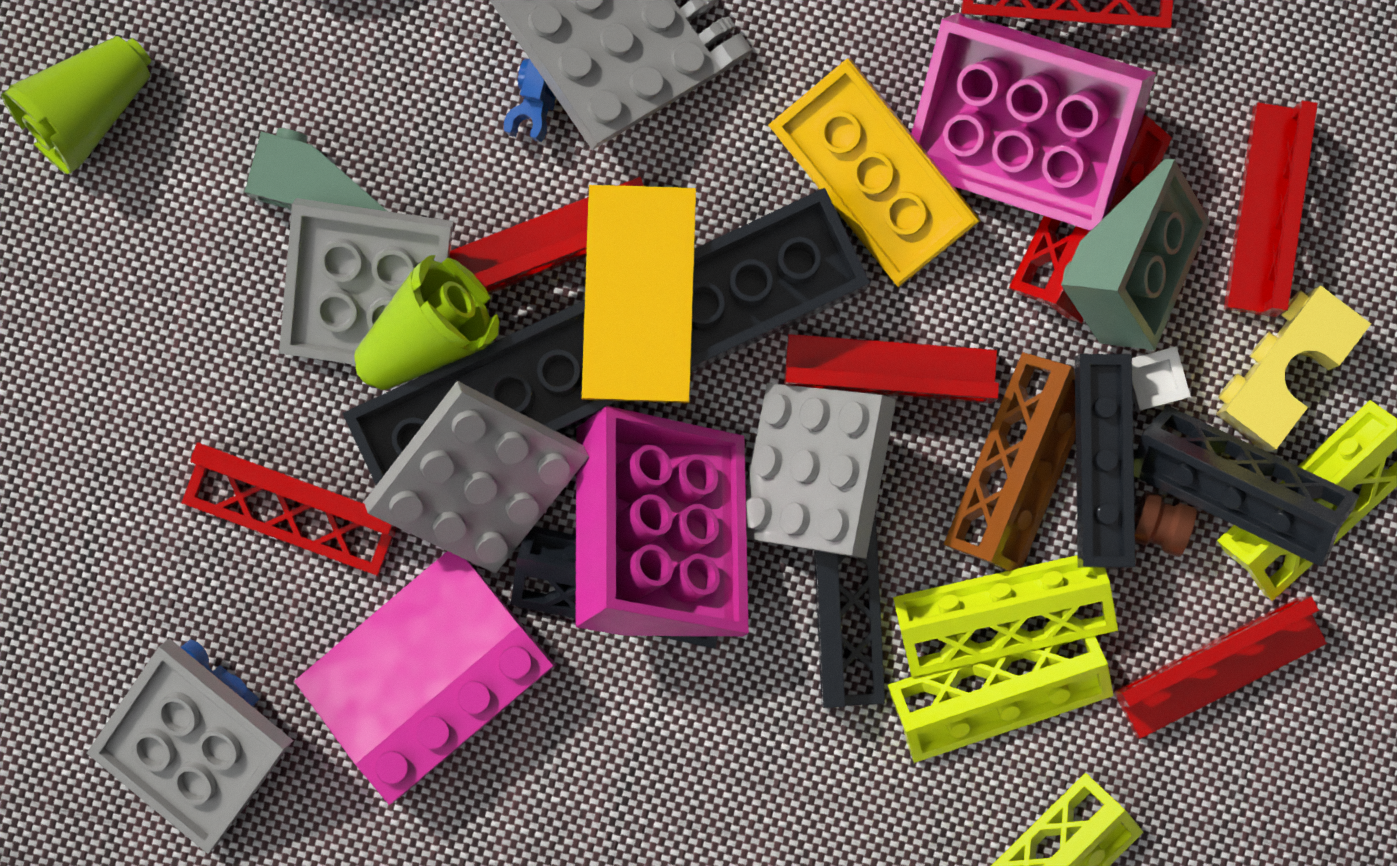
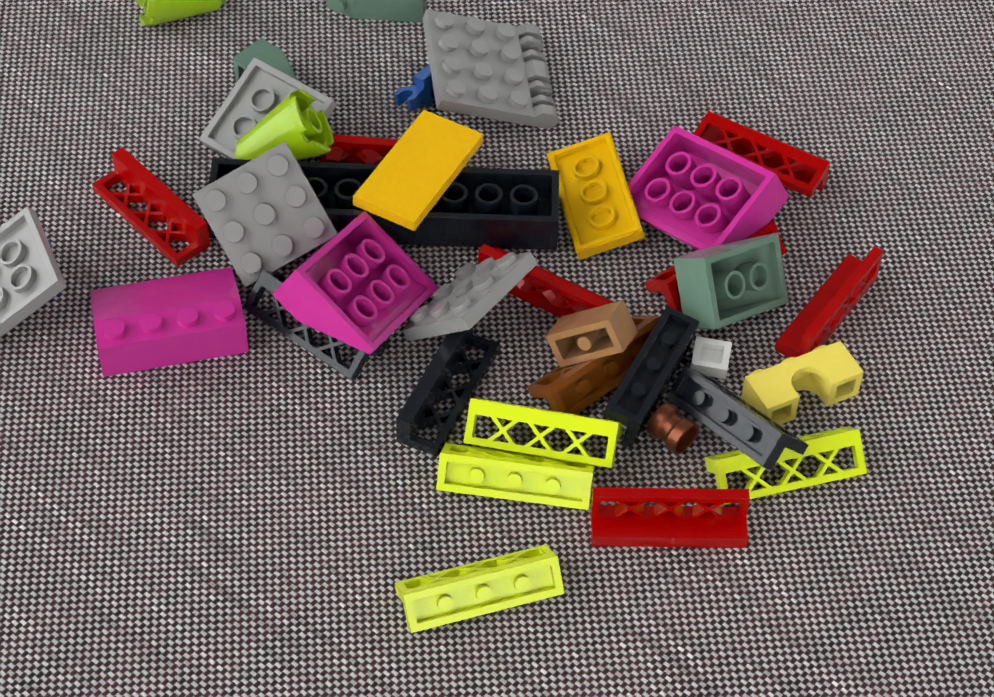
camera: 25 degrees right, 35 degrees down
(1002, 445) = (591, 334): none -> medium nougat brick

